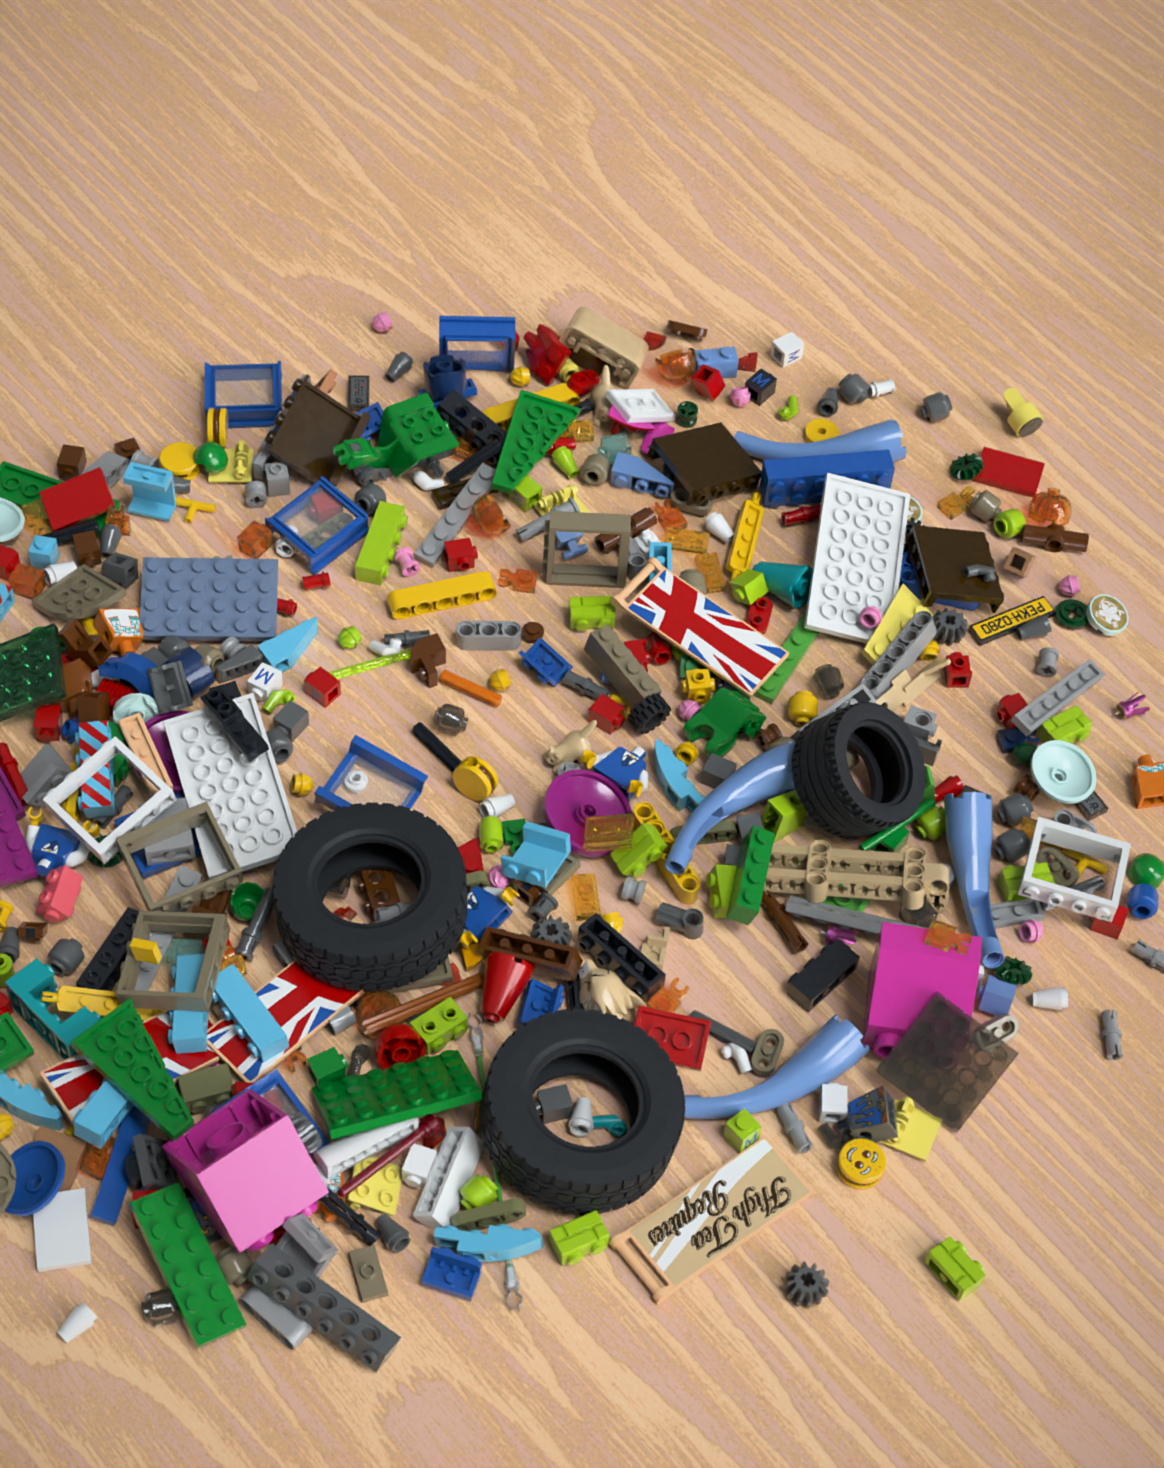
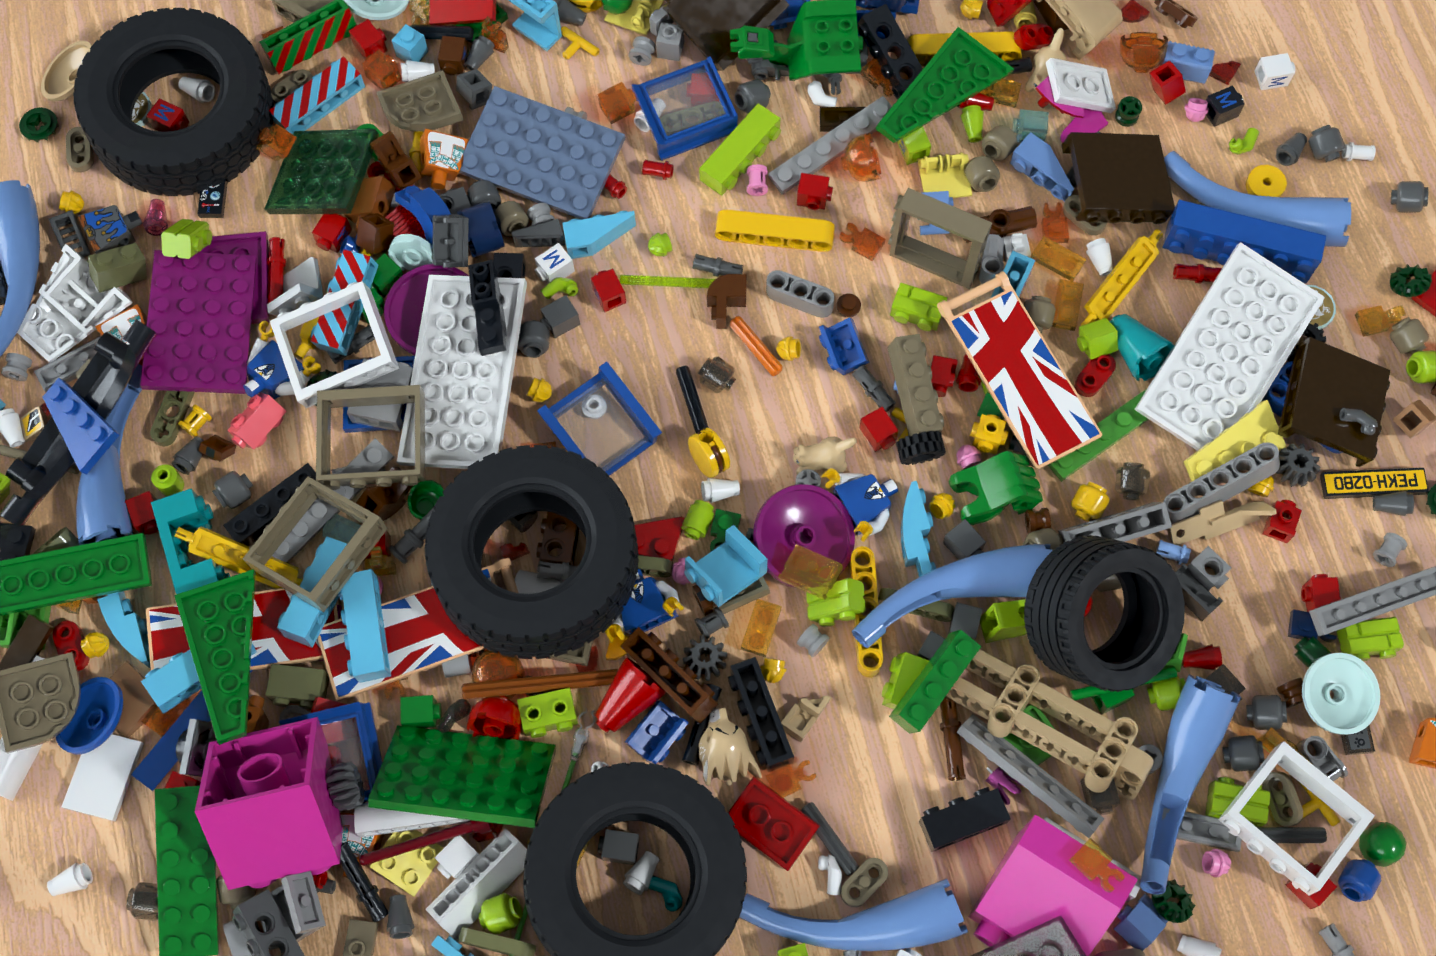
camera: 30 degrees right, 15 degrees up
(142, 746) = (399, 302): light nougat tile -> none
(145, 951) = (286, 527): yellow tile -> none
(384, 650) = (688, 271): white arm -> none
(474, 461) = (876, 90): black axle -> none
(539, 524) = (933, 182): light grey pin -> none
(593, 497) = (982, 174): none -> dark tan head
(679, 920) = (843, 692): dark grey piece -> none
(870, 617) = (1212, 426): bright pink plate -> none

